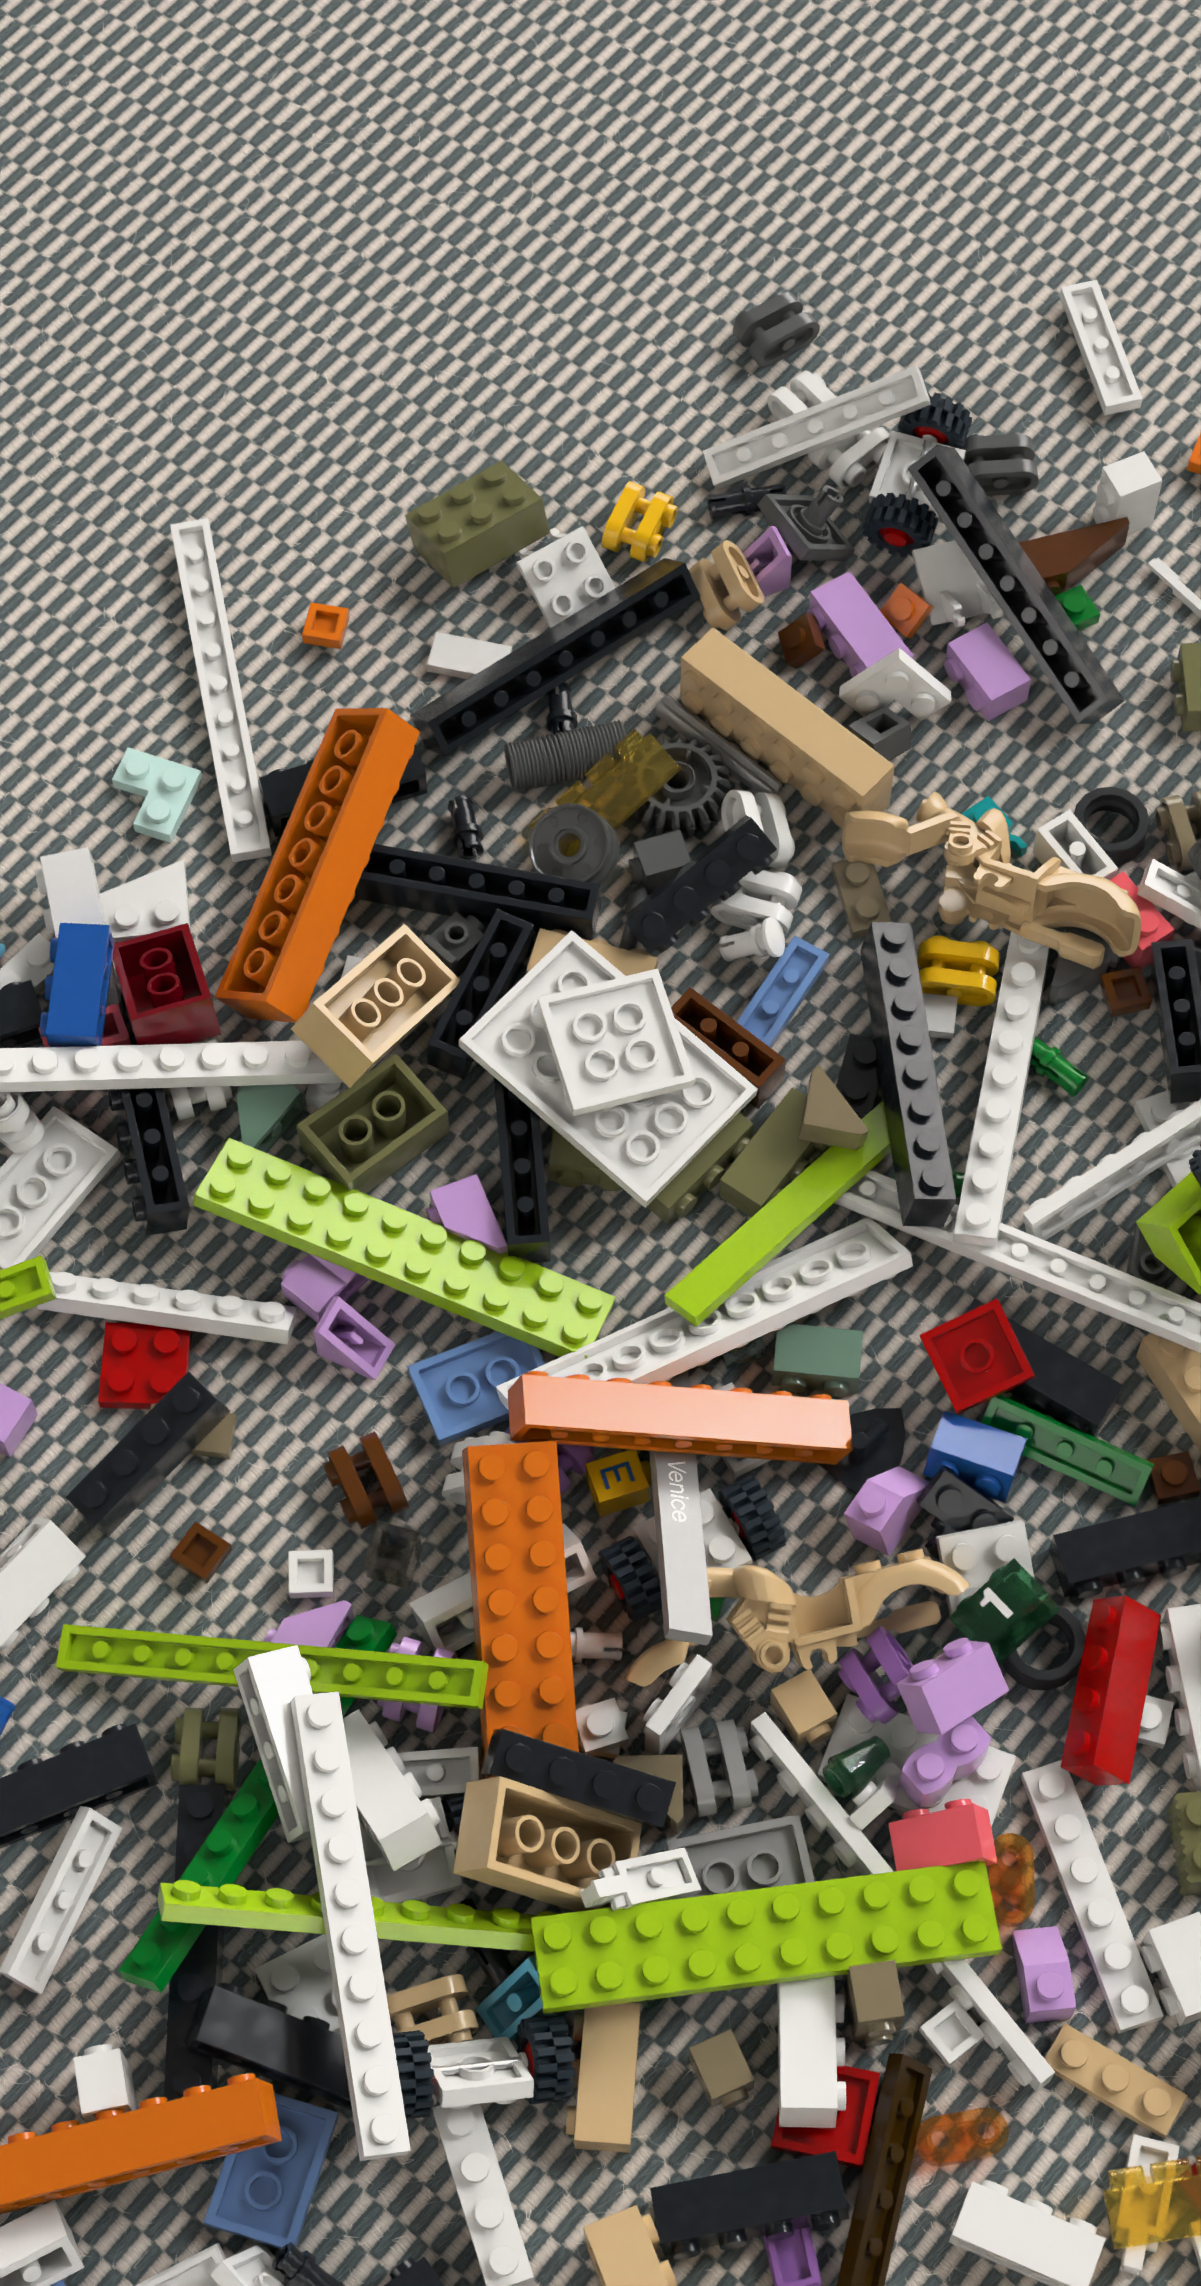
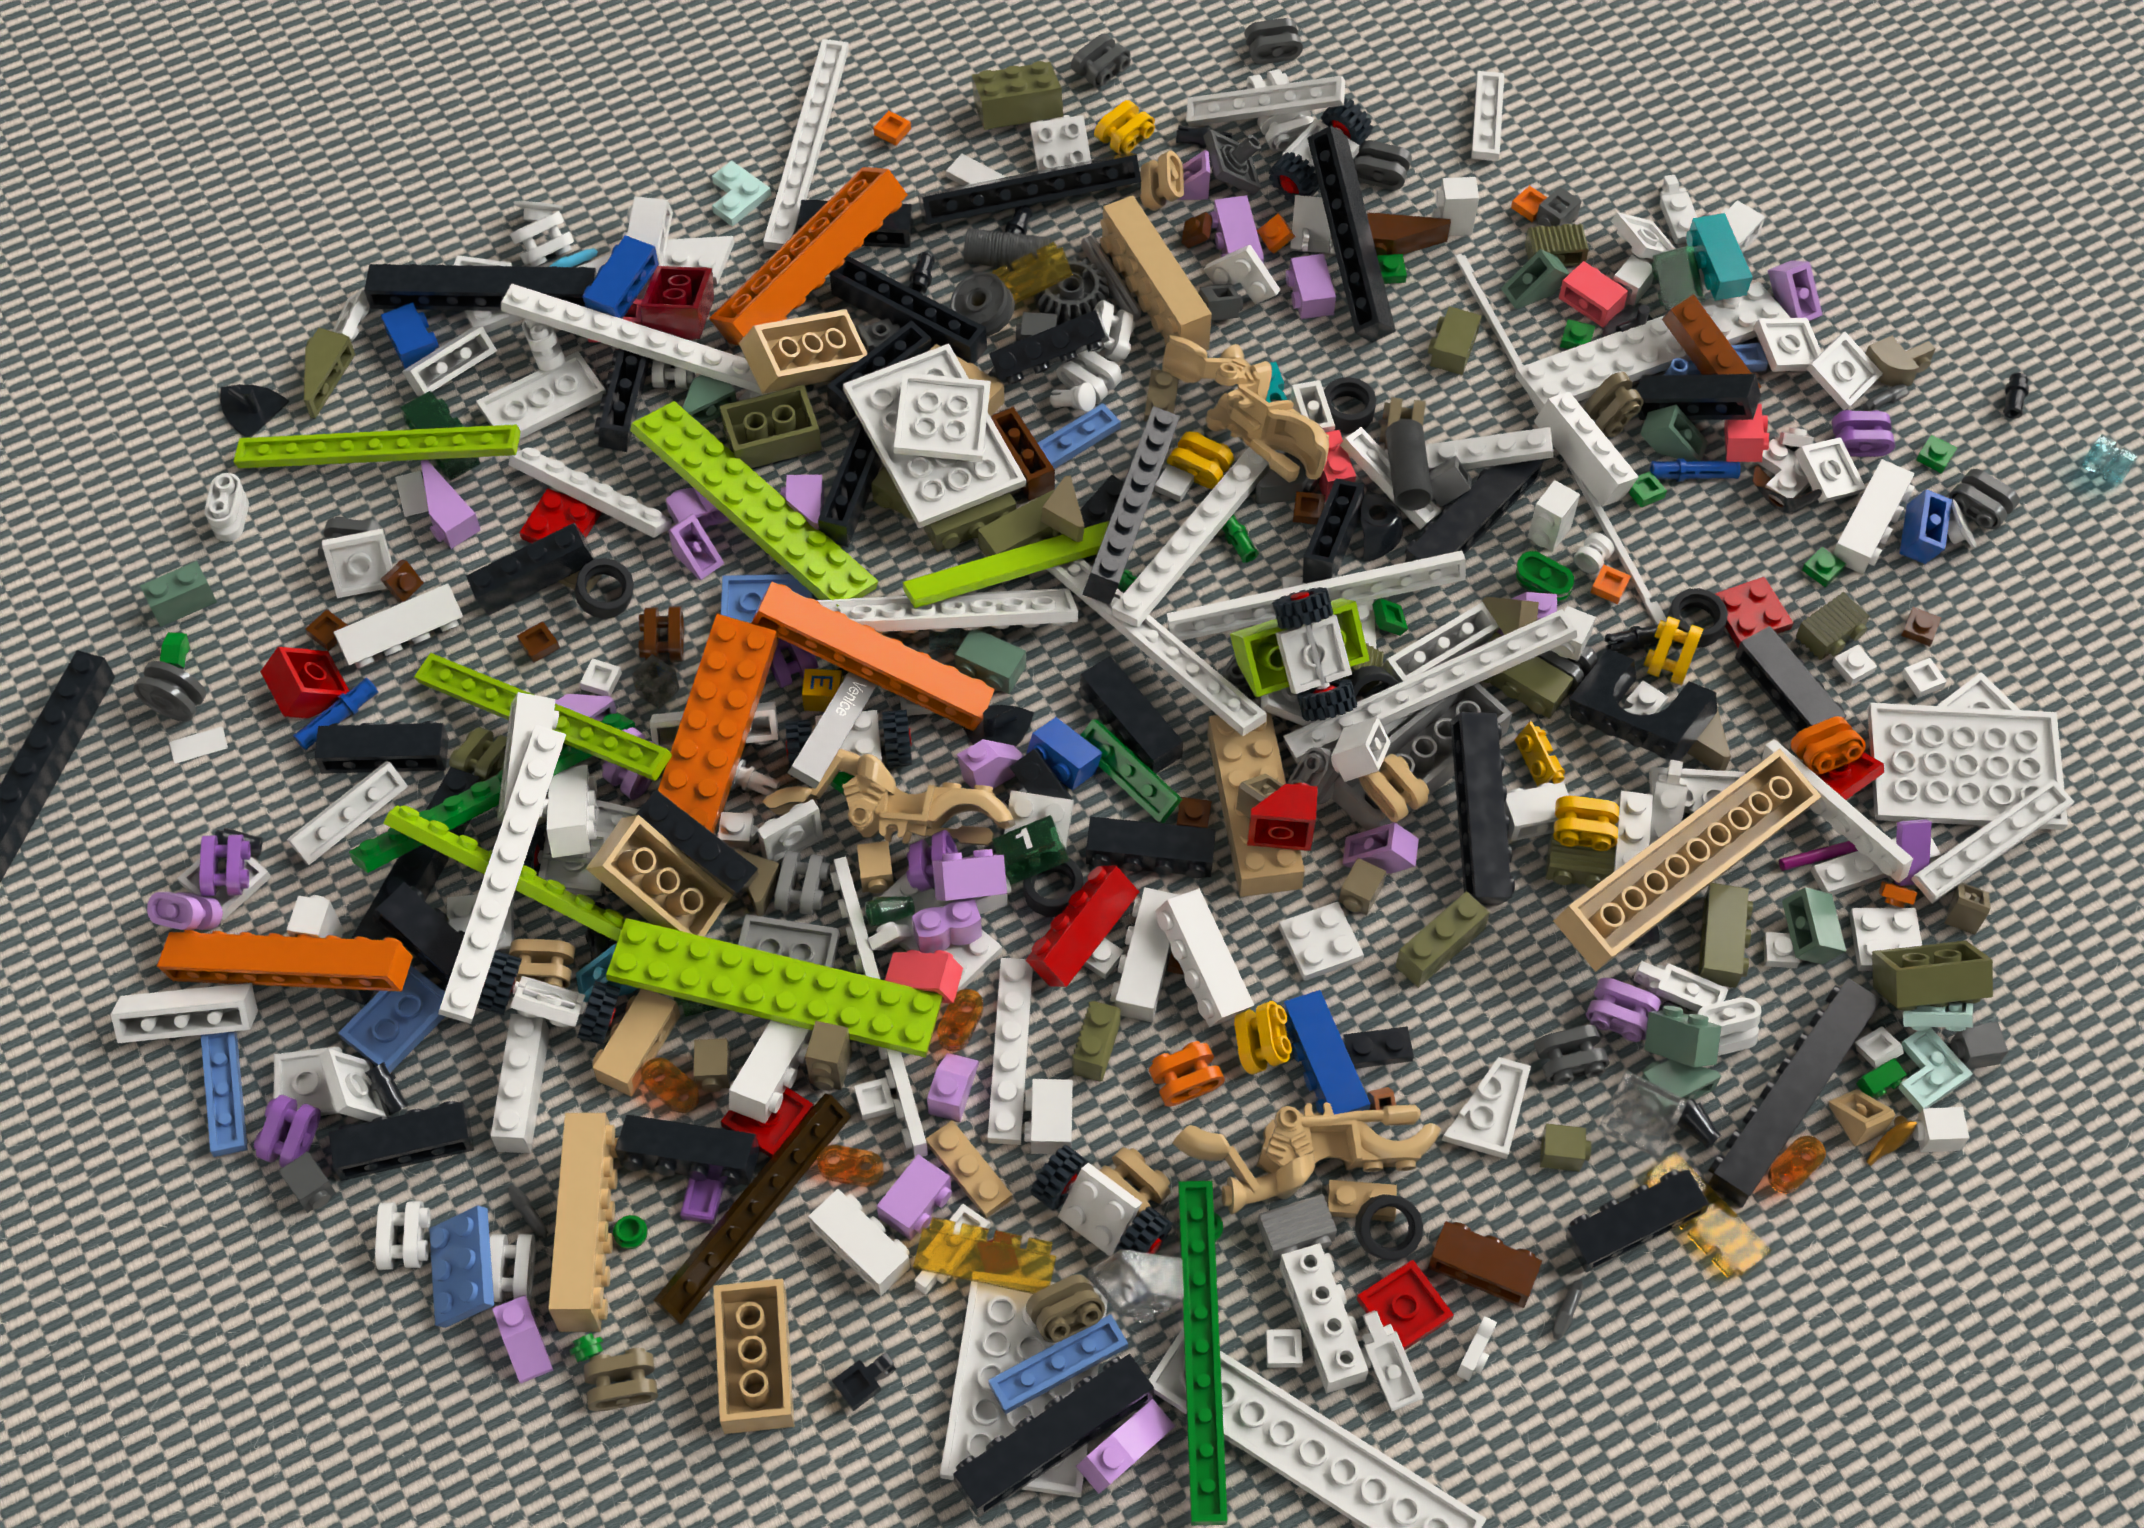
camera: 20 degrees right, 5 degrees down
(271, 1415) = (610, 568): none -> black tyre
(570, 448) = (1101, 60): none -> dark grey brick
(643, 1880) = (710, 923): white hinge -> none
(681, 2115) = (671, 1086): none -> clear orange plate
(977, 1356) = (1091, 688): red plate -> none
(1069, 2150) = (915, 1197): none -> lavender brick

